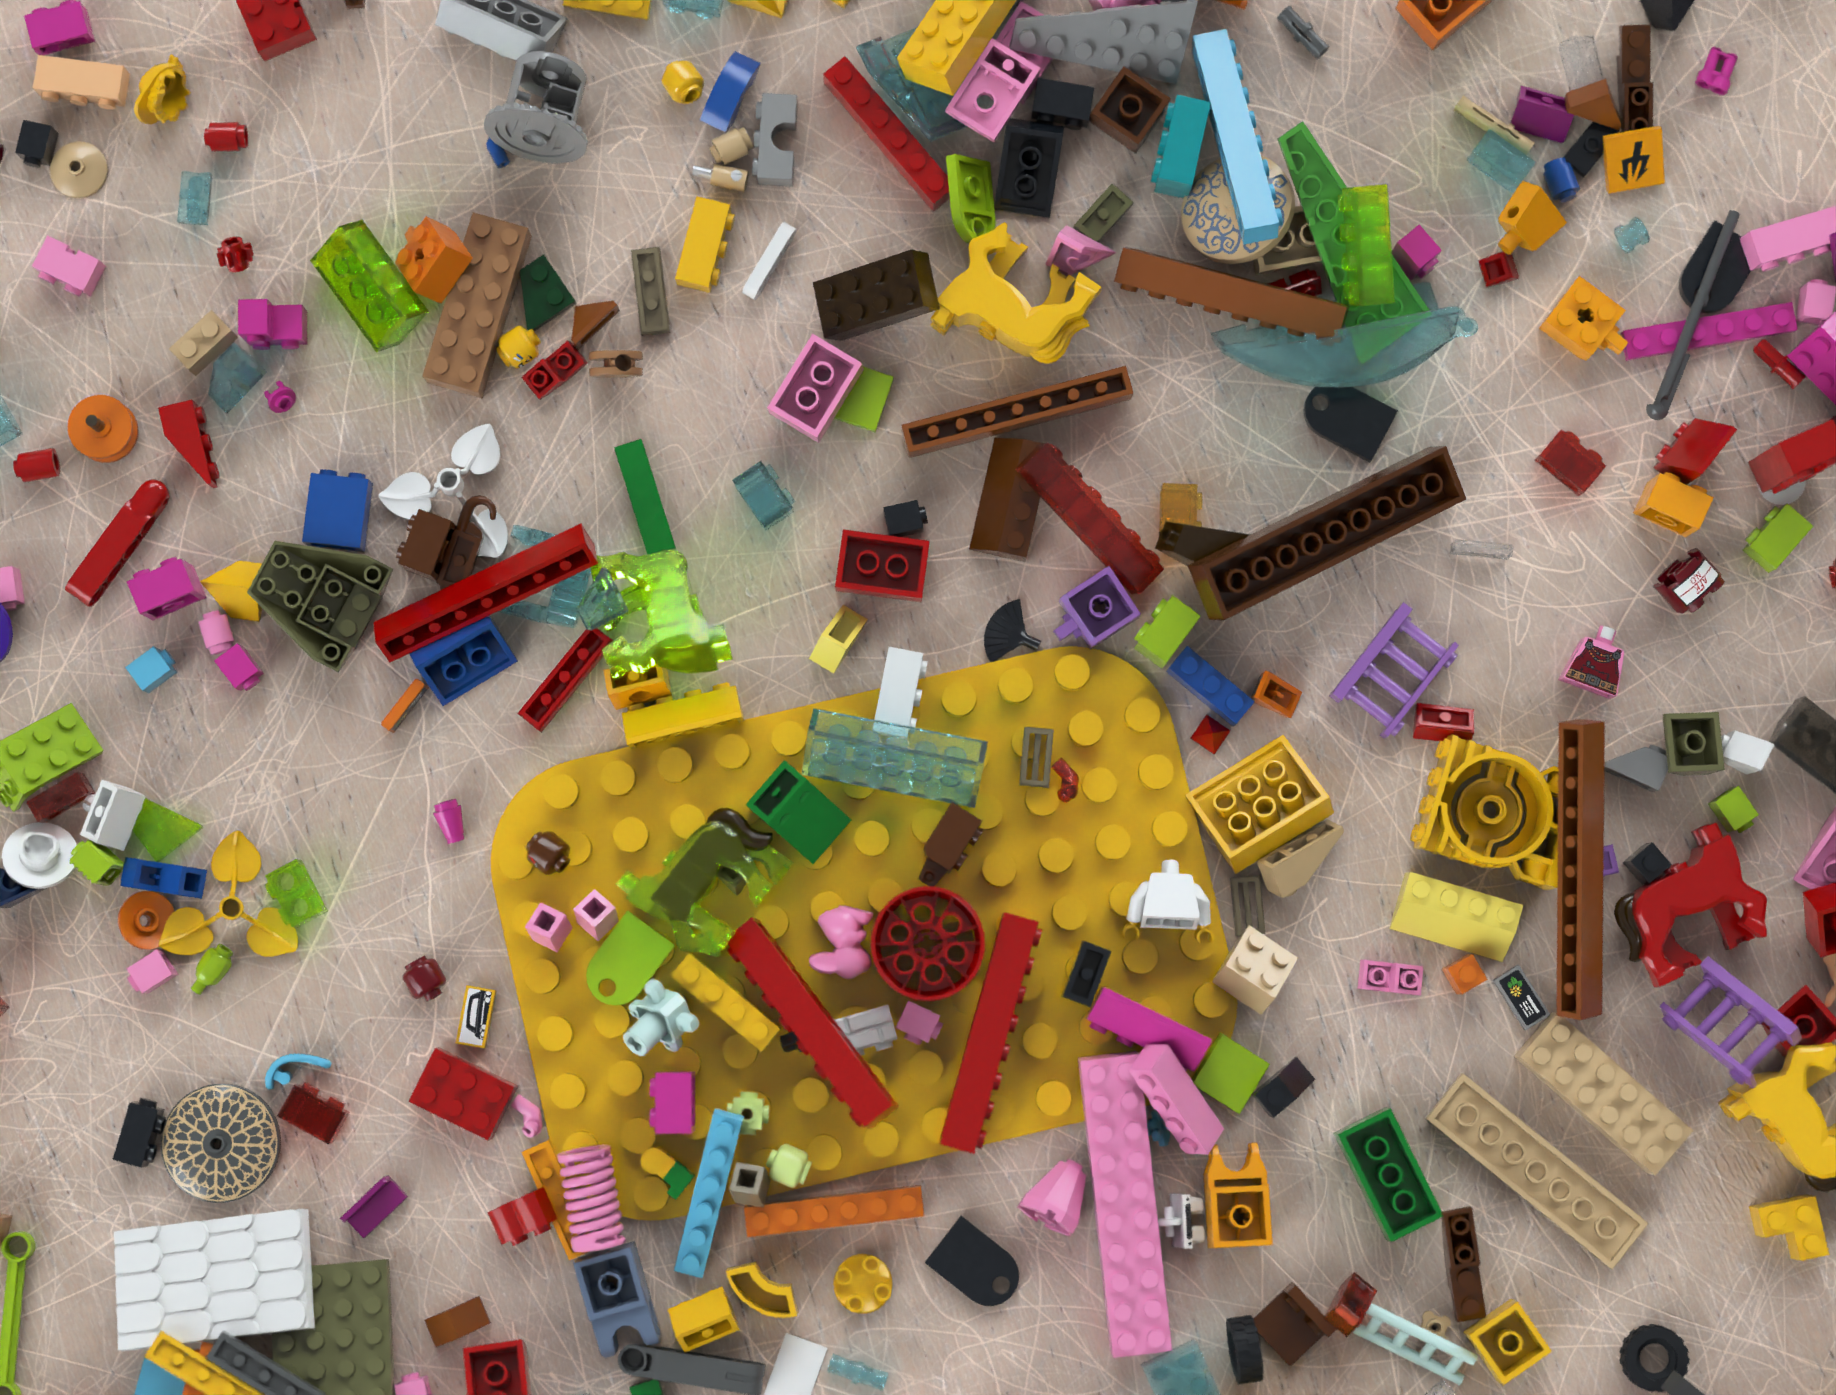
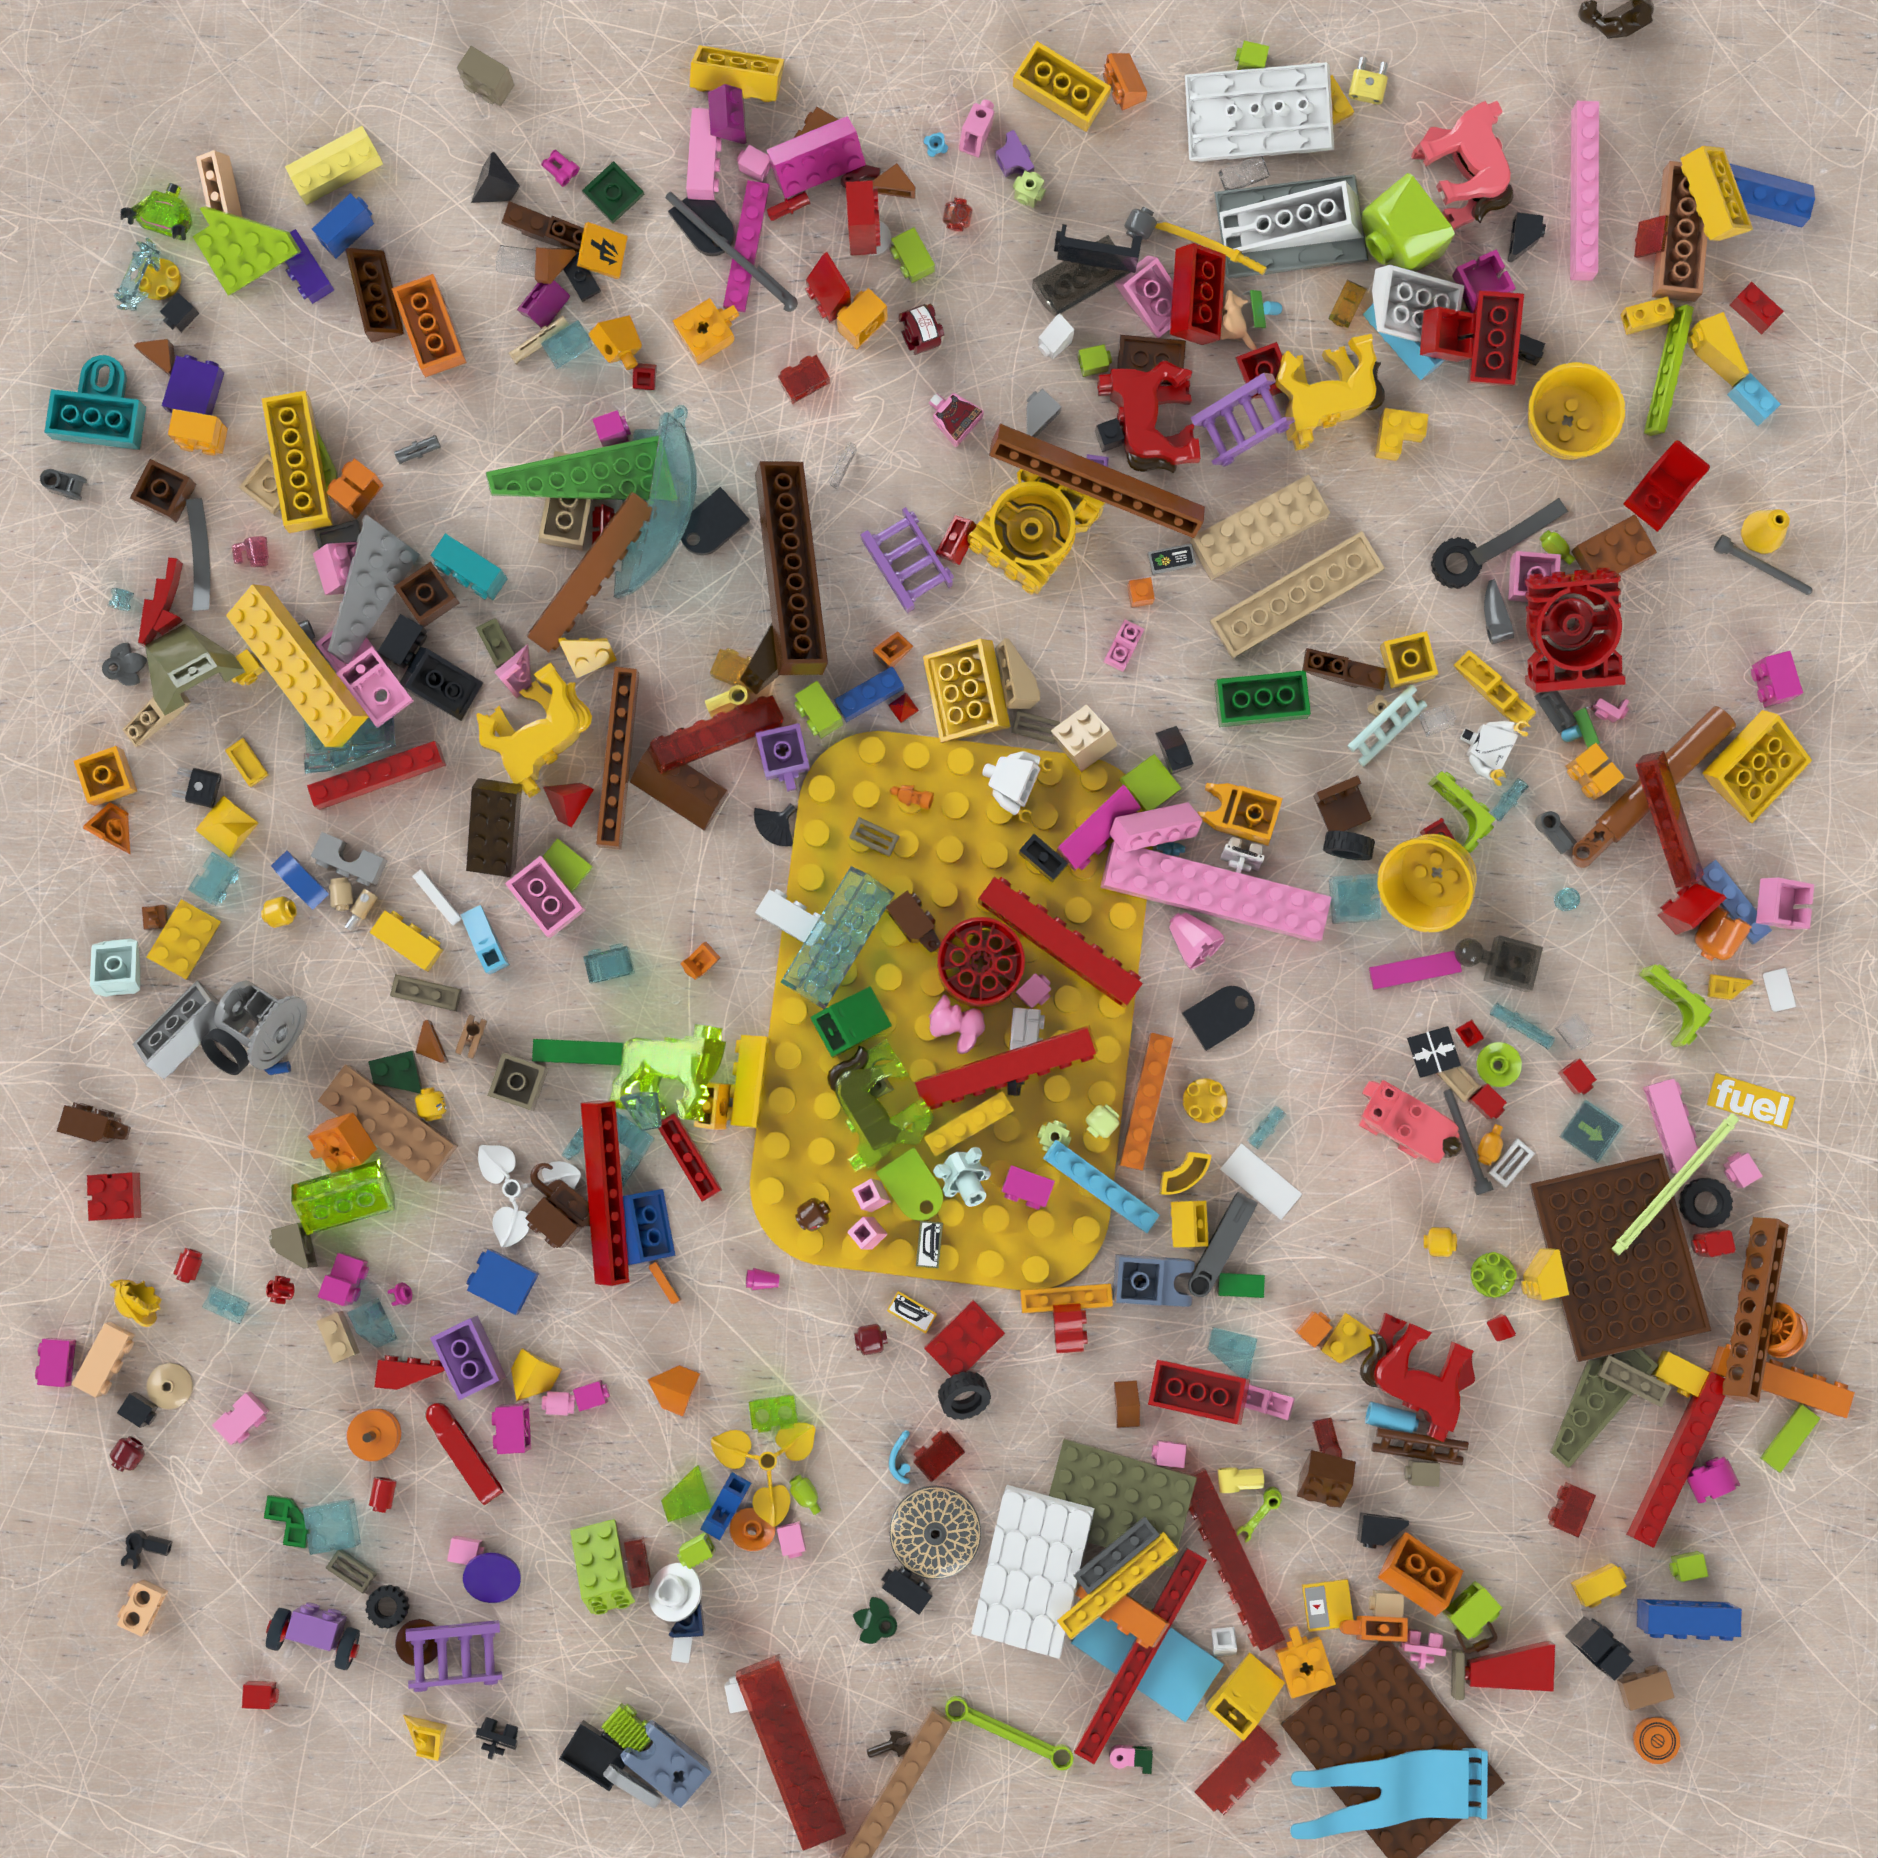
camera: 70 degrees left, 0 degrees up
(89, 1104) = (872, 1619): none -> dark green plate
(111, 814) = (665, 1527): white brick -> none
(152, 669) = (567, 1460): medium azure brick -> none
(232, 505) = (468, 1357): none -> medium lavender slope
(283, 764) = (674, 1388): none -> orange slope
(291, 250) = (294, 1245): none -> dark tan slope
(320, 597) = (561, 1316): olive wedge -> none
(375, 1206) = (1022, 1434): magenta panel -> none
(406, 1109) = (959, 1384): none -> black tyre
(494, 62) = (218, 1057): none -> black tyre
(531, 1115) = (997, 1296): bright pink arm -> none
(555, 370) = (457, 1084): red slope -> none
(563, 1007) = (929, 1244): none -> tile
(582, 440) = (518, 1082): none -> dark tan brick
(604, 1187) = (1058, 1257): bright pink piece -> none
(659, 1162) = (1065, 1214): leg -> none
(737, 336) = (484, 940): none -> medium azure slope
(749, 1184) = (1106, 1154): dark tan brick -> none
(807, 603) = (700, 961): none -> orange bracket
(838, 639) = (734, 948): light yellow slope -> none
(882, 566) = (693, 896): red brick -> none
(905, 518) = (665, 868): black brick -> none
(944, 372) = (568, 800): none -> red slope
(970, 196) = (446, 732): lime tile -> none
(1069, 781) = (900, 819): clear red arm -> none
(1102, 779) = (908, 795): none -> orange piece
(1130, 328) = (587, 654): none -> yellow wing
(1135, 516) = (725, 701): none -> light yellow piece
(1212, 222) = (530, 543): tan dish -> none
(1235, 137) = (477, 525): medium azure brick -> none
(1350, 1304) = (1344, 759): clear red piece -> none
(1367, 245) = (594, 460): clear neon green brick -> none
(1455, 916) = (1097, 583): light yellow slope -> none
(1561, 180) = (597, 307): blue brick -> none
(1631, 234) = (656, 273): clear light blue wheel -> none
(1693, 743) = (1037, 369): olive slope -> none
(1711, 145) = (613, 192): none -> dark green plate
(1768, 871) = (1147, 352): none -> reddish brown tile

